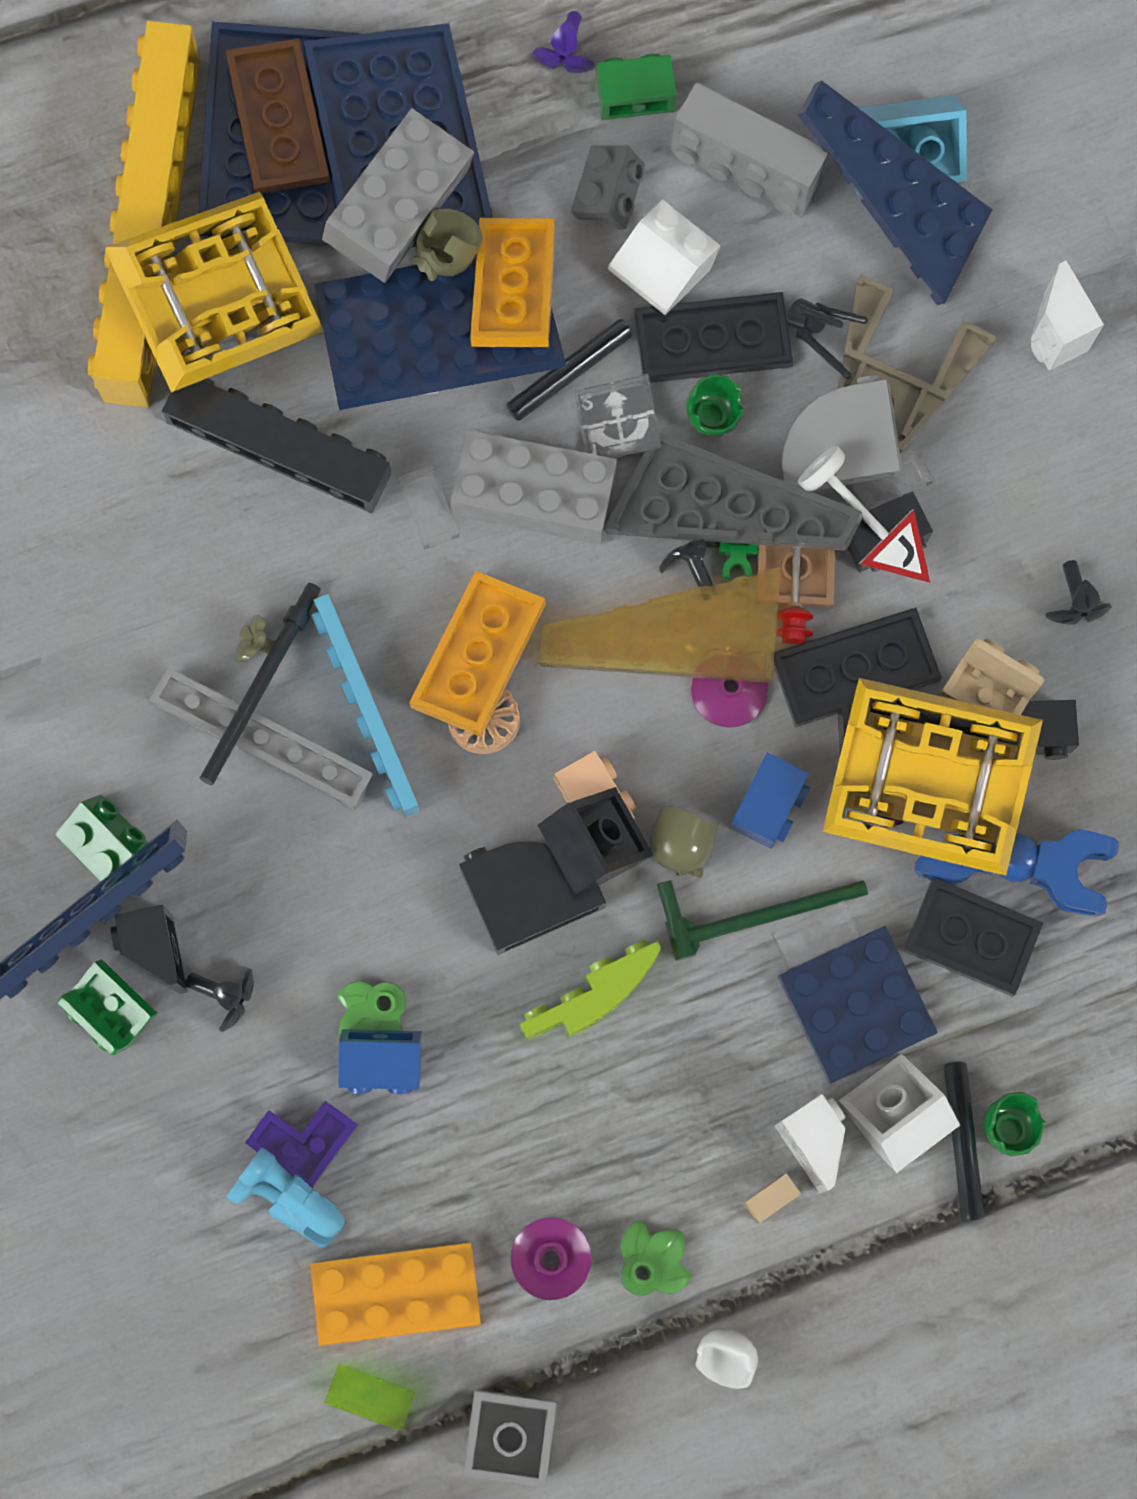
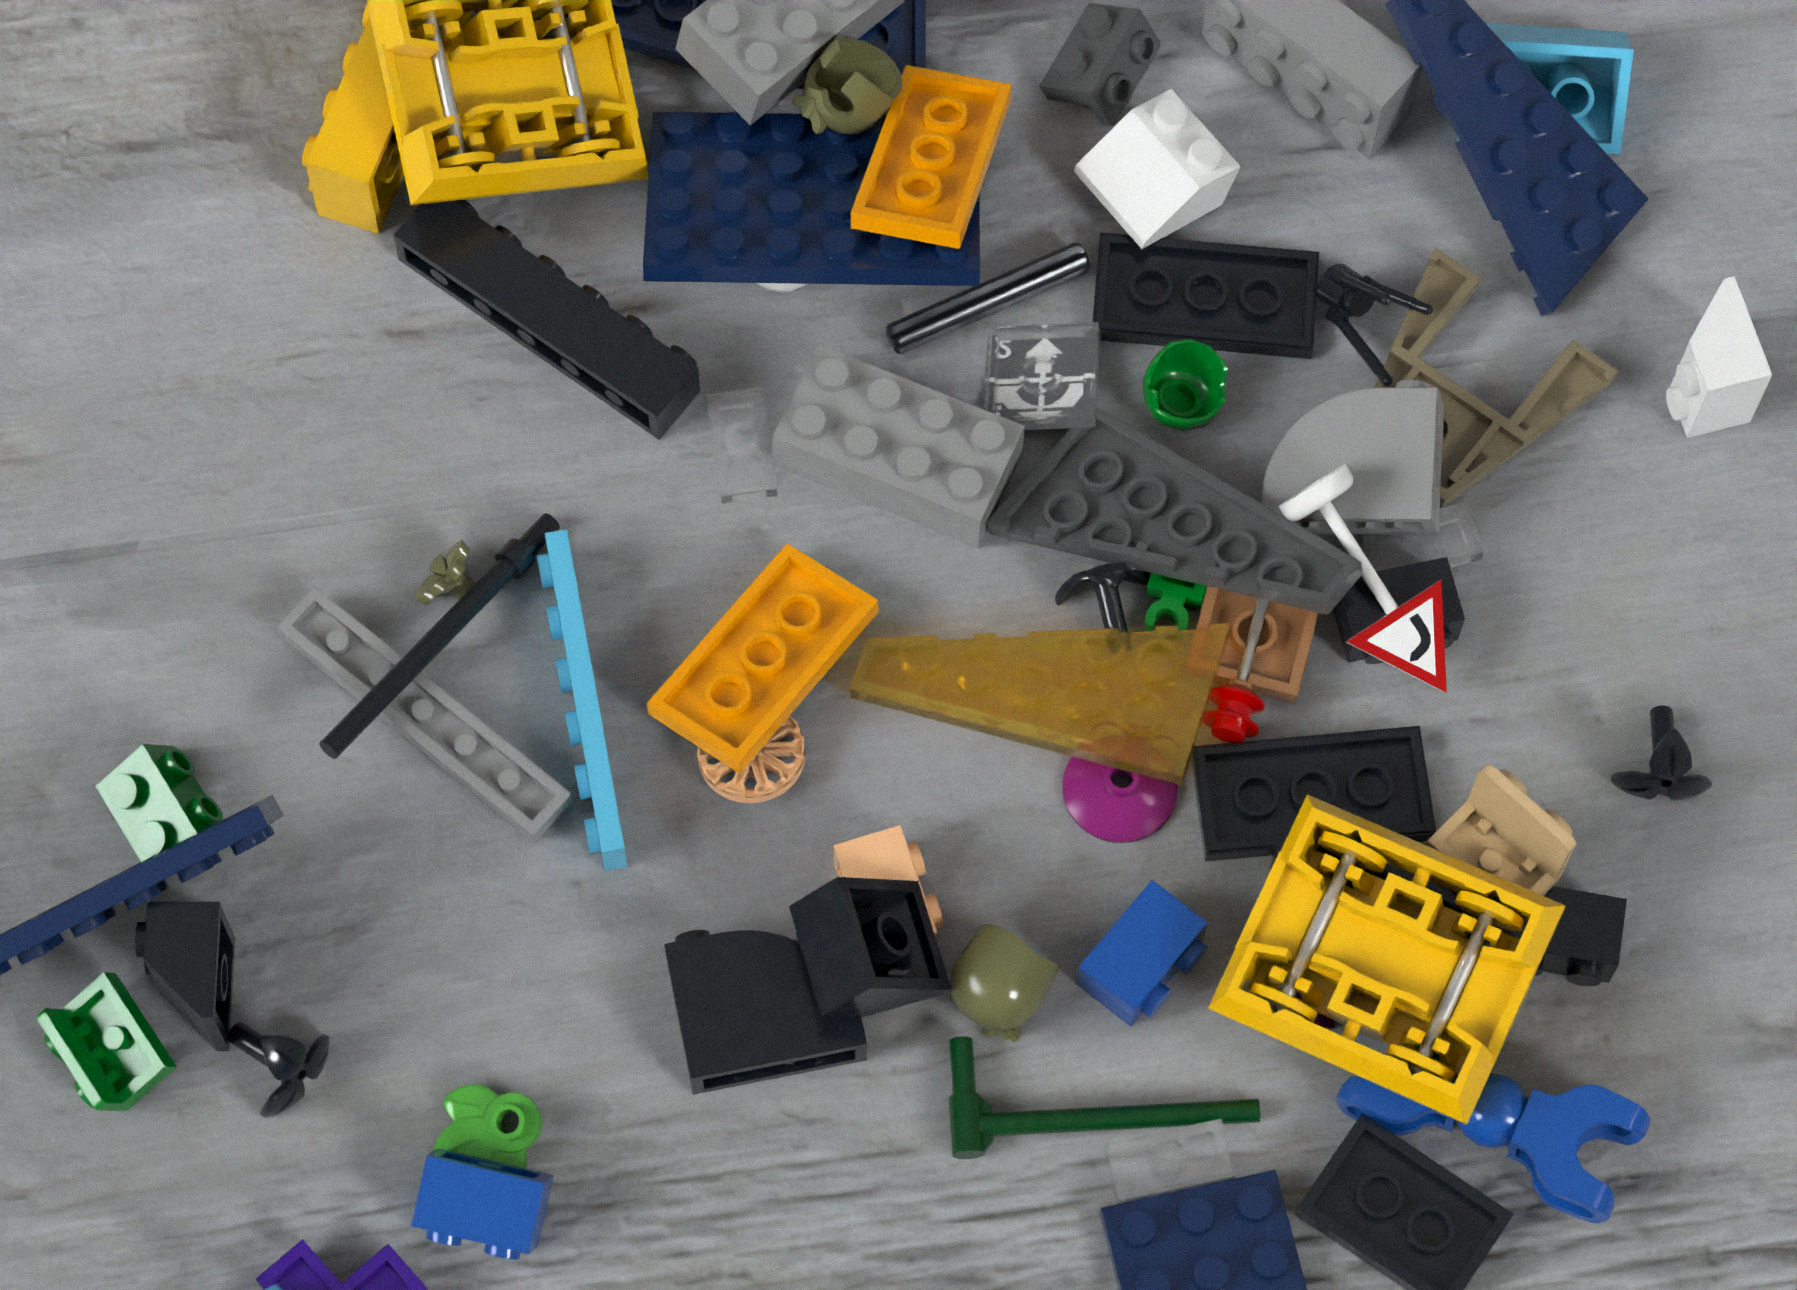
camera: 15 degrees right, 10 degrees down
(609, 987) = (844, 1173): lime slope -> none

